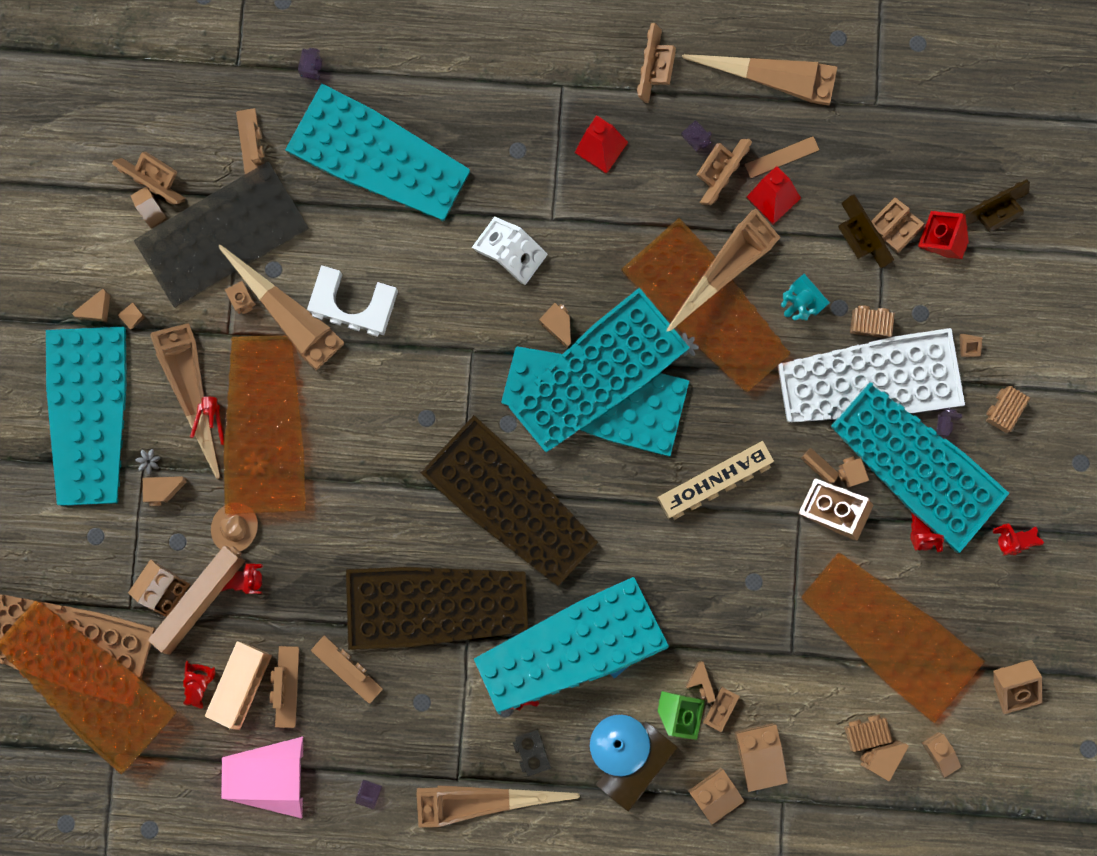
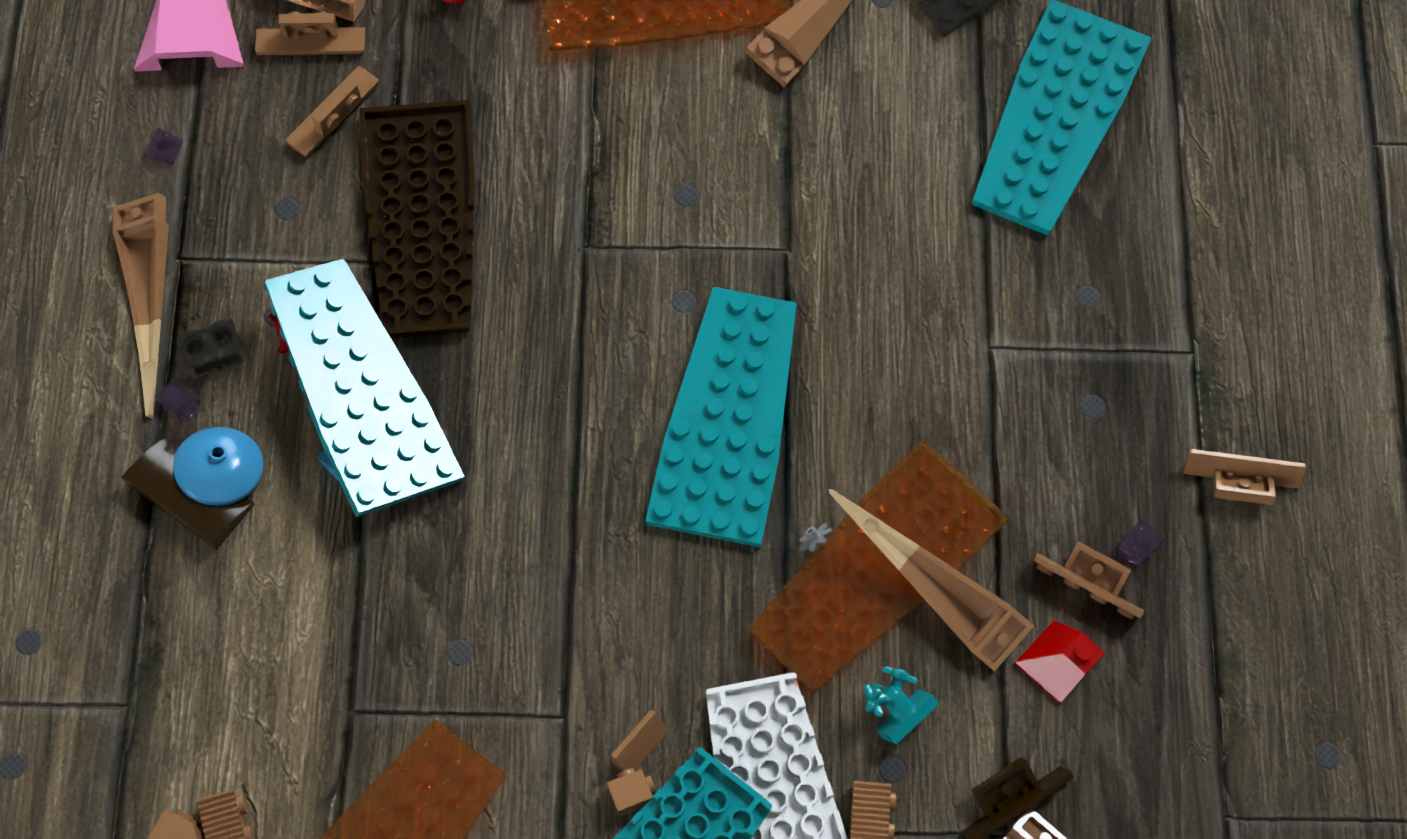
camera: 85 degrees right, 15 degrees down
(310, 63) = (1177, 20): clear purple brick -> none
(372, 319) = (840, 56): white arch -> none
(509, 247) = (944, 278): white bracket -> none
(509, 501) = (570, 305): dark brown wing -> none
(557, 323) = (832, 357): medium nougat slope -> none
(569, 775) = (178, 400): none -> clear purple bracket
(599, 371) = (766, 411): teal wing -> none
(601, 144) = (1109, 406): red slope -> none
(681, 714) = (259, 548): bright green slope -> none
(700, 676) = (315, 576): medium nougat slope -> none
(716, 479) = (611, 585): tan brick -> none
(716, 795) = (138, 603): medium nougat slope -> none
(721, 709) = (267, 606): medium nougat plate -> none
(761, 757) = (195, 667): medium nougat slope -> none
(781, 157) = (1124, 674): medium nougat sticker -> none
(798, 78) = (1251, 694): medium nougat plate -> none
(836, 509) = (571, 769): medium nougat slope -> none

